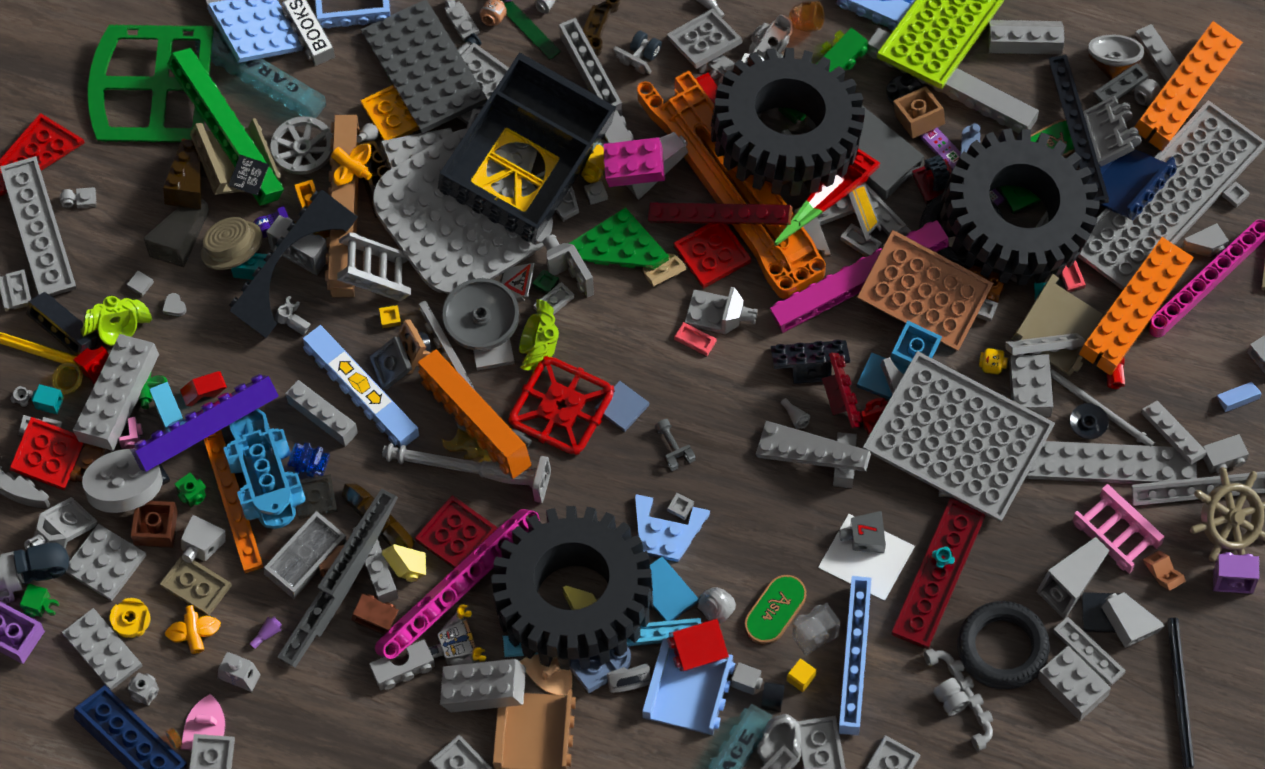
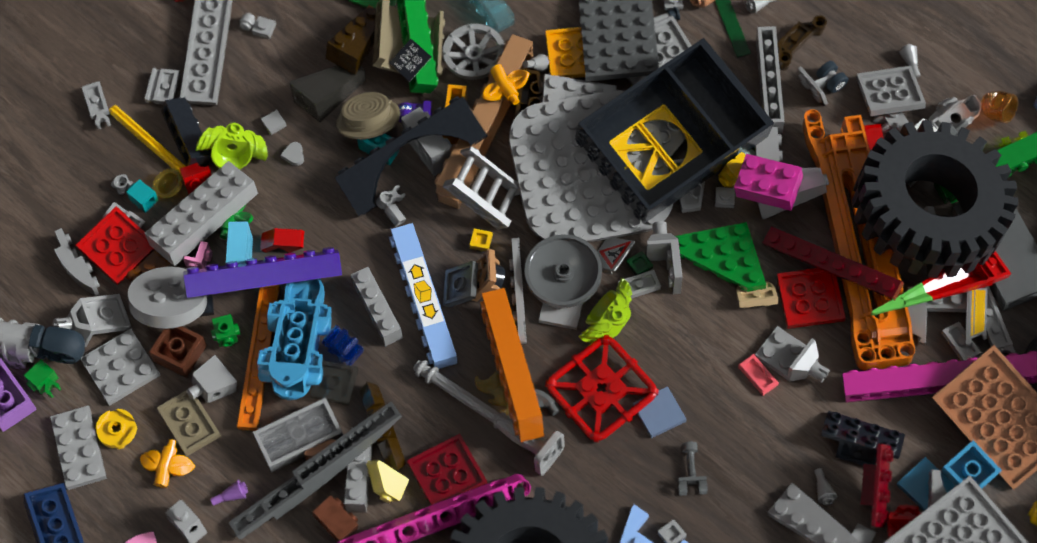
camera: 25 degrees right, 0 degrees up
(143, 688) = (94, 501): light grey brick -> none

